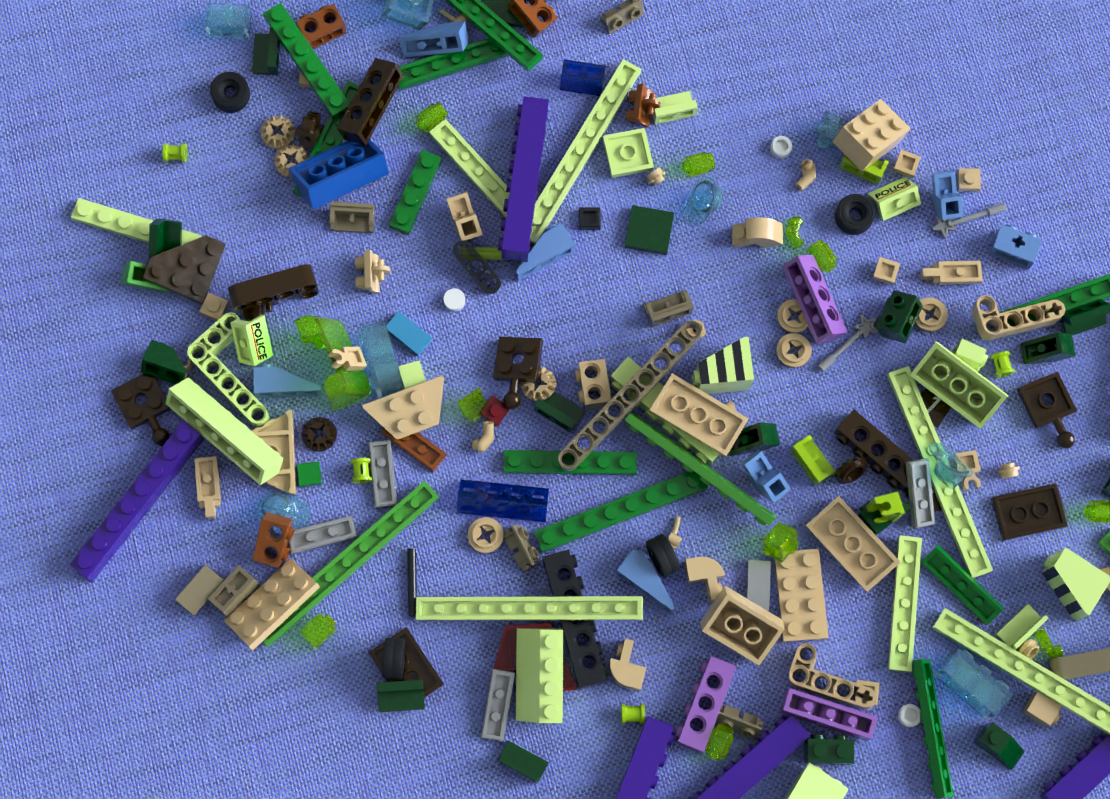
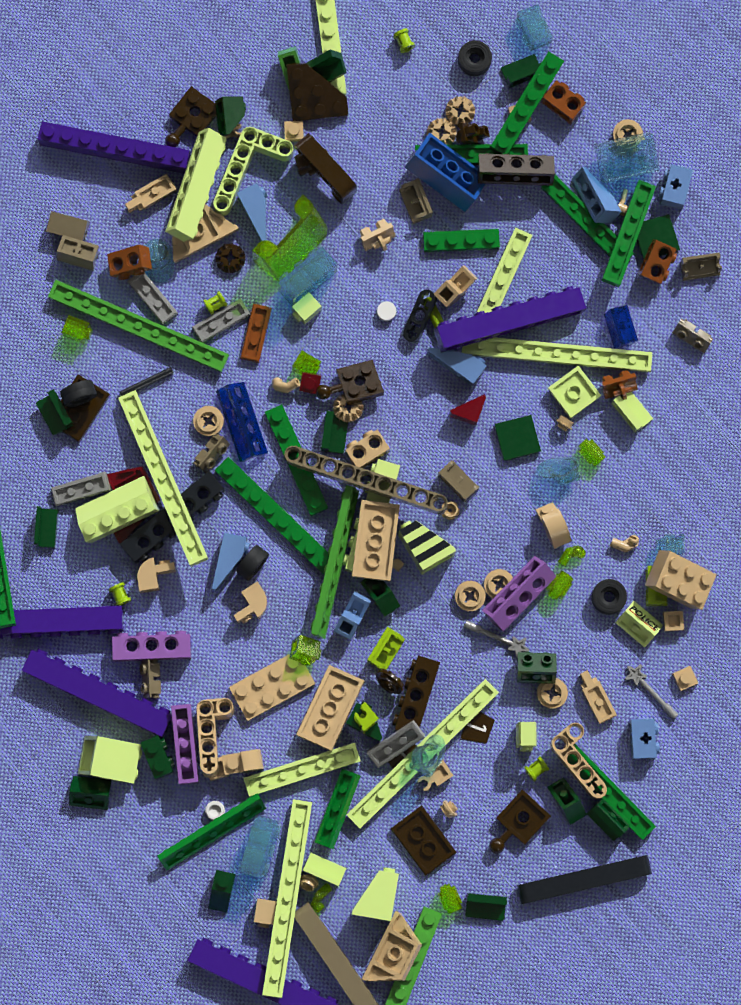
camera: 65 degrees right, 5 degrees up
(251, 340) = (278, 172): yellowish green panel -> none
(271, 604) = (81, 284): tan plate -> none
(309, 474) = (195, 265): green tile -> none
(349, 357) = (293, 250): tan plate -> none
(408, 333) = (342, 288): dark azure tile -> none
(409, 408) = (278, 316): tan wing -> none
(431, 117) = (528, 223): clear neon green brick -> none
(589, 218) = (504, 386): black tile -> none
(601, 262) = (469, 411): none -> dark red slope
(673, 538) = (271, 566): tan hand -> none
(719, 742) = (126, 669): clear neon green brick -> none
(742, 625) = (223, 646): tan brick -> none
(758, 582) = (257, 651): light grey tile -> none
(781, 147) = (639, 513): white tile -> none
(874, 659) = (243, 762): none -> tan brick
(886, 271) = (572, 642): tan plate -> none
(945, 199) = (658, 663): medium blue brick -> none
(958, 385) = (496, 737): yellowish green slope -> none

